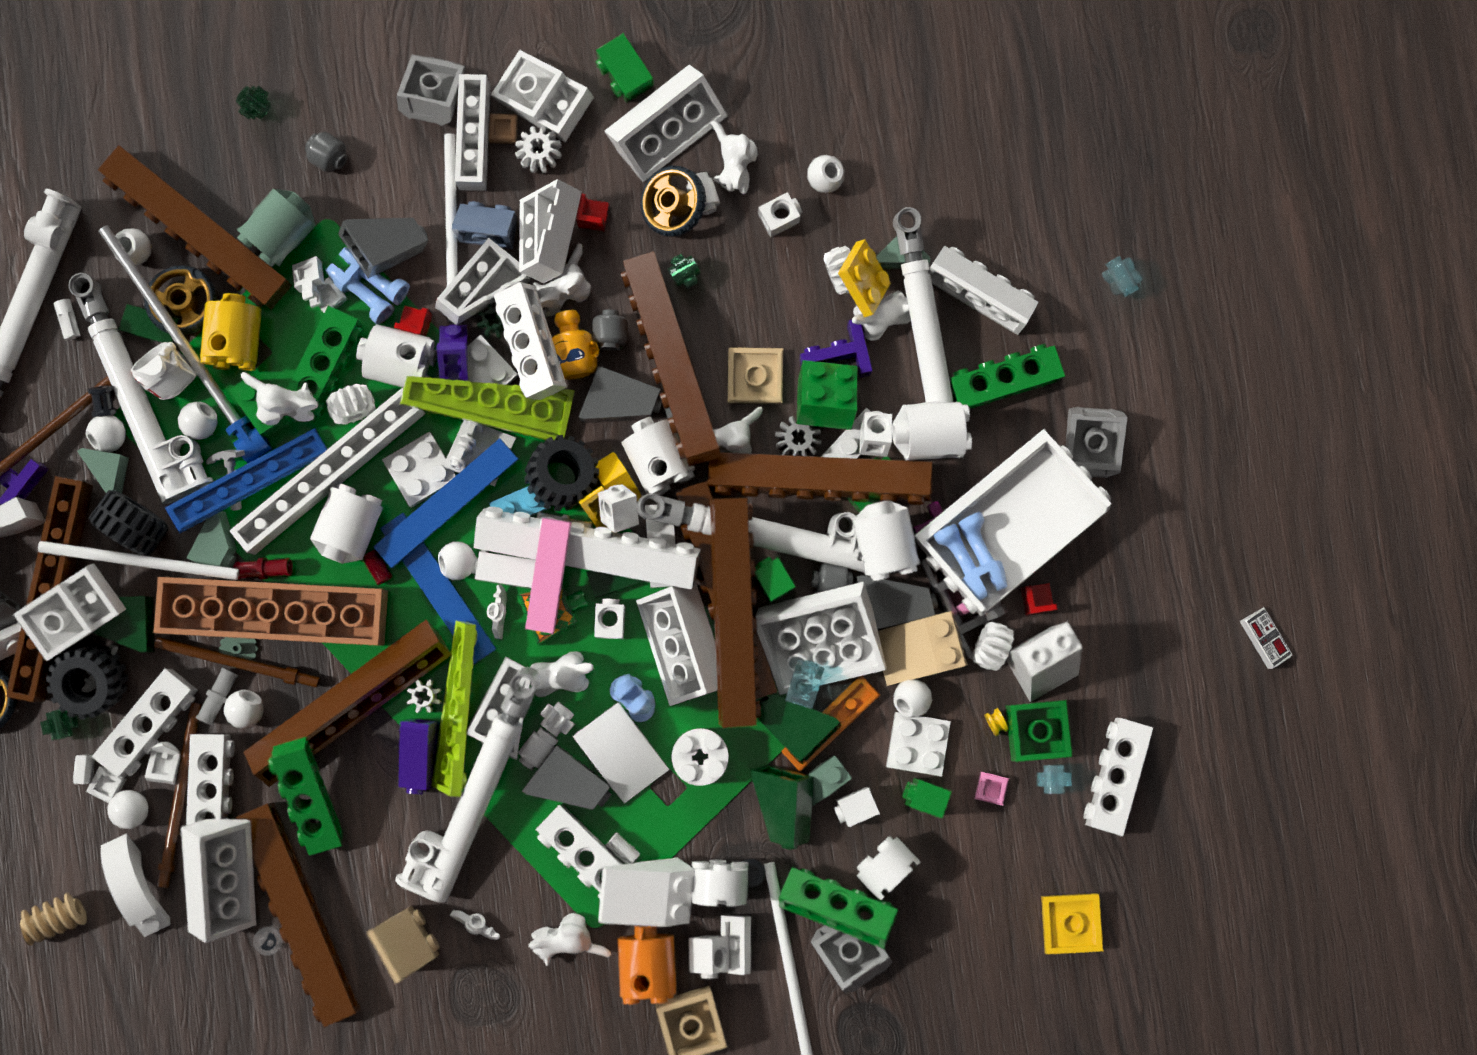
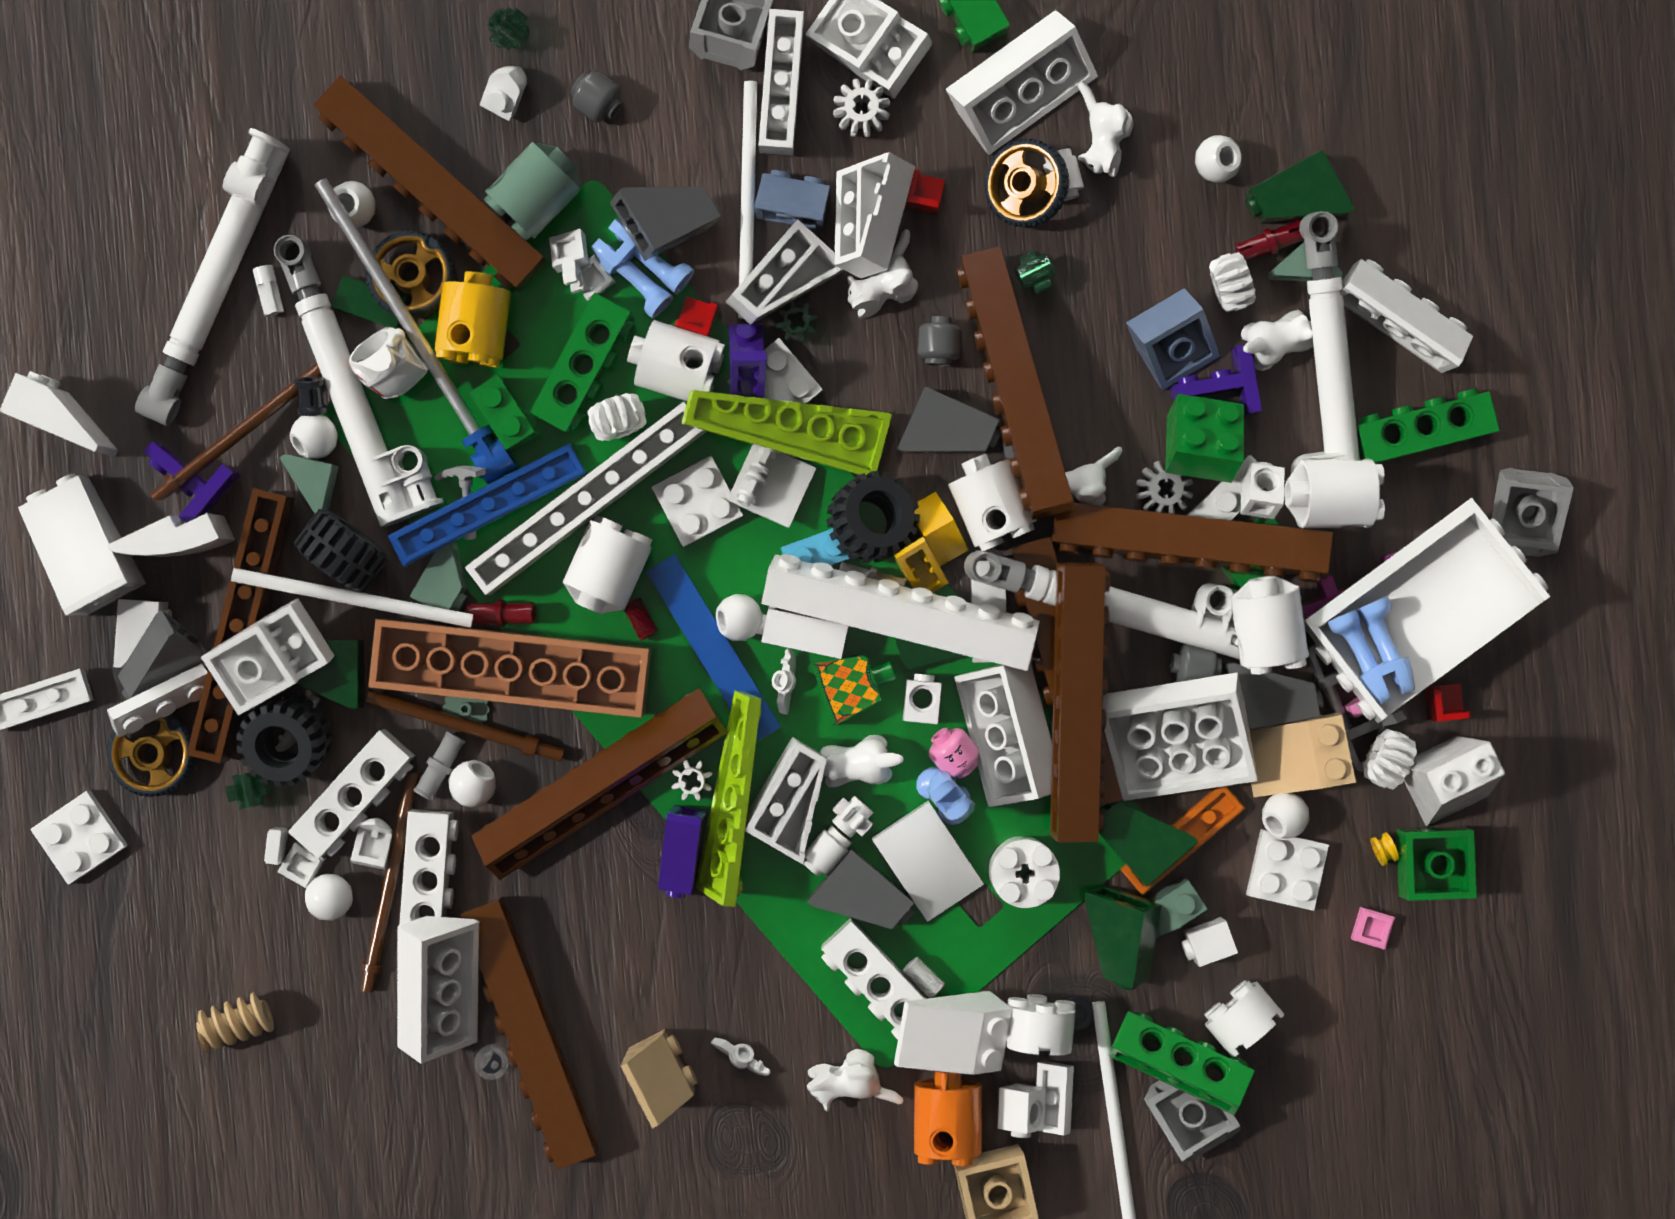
camera: 10 degrees right, 5 degrees up
(129, 888) = (328, 988): white arch -> none
(197, 420) = (427, 427): white piece -> none
(252, 152) = (504, 91): none -> white plate
(277, 402) = (530, 412): white animal -> none
(299, 757) = (540, 848): green brick -> none
(440, 866) = (702, 987): white piece -> none
(446, 503) = (729, 545): blue tile -> none
(503, 128) = (817, 77): medium nougat tile -> none
(524, 300) = (857, 364): white brick -> none
(548, 575) = (853, 644): bright pink tile -> none
(574, 347) = (893, 364): light orange piece -> none
(618, 508) = (942, 566): white brick -> none
(638, 661) = (954, 752): none -> bright pink head
(755, 375) = (1115, 406): tan tile -> none
(771, 222) = (1143, 210): white brick -> none
(773, 579) = (1126, 663): green brick -> none
(799, 318) = (1173, 338): none -> sand blue slope
(803, 693) = (1154, 803): clear light blue brick -> none
(864, 278) = (1261, 295): yellow plate -> none
(874, 236) = (1269, 241): none -> dark red pin
(891, 194) = (1299, 191): none -> dark green slope
(926, 797) = (1296, 936): green brick -> none
(1054, 779) = (1450, 922): clear light blue gear -> none
(1072, 923) = (1459, 1095): yellow plate -> none
(1122, 276) = (1577, 308): clear light blue piece -> none
(1131, 765) = (1534, 941): white brick -> none

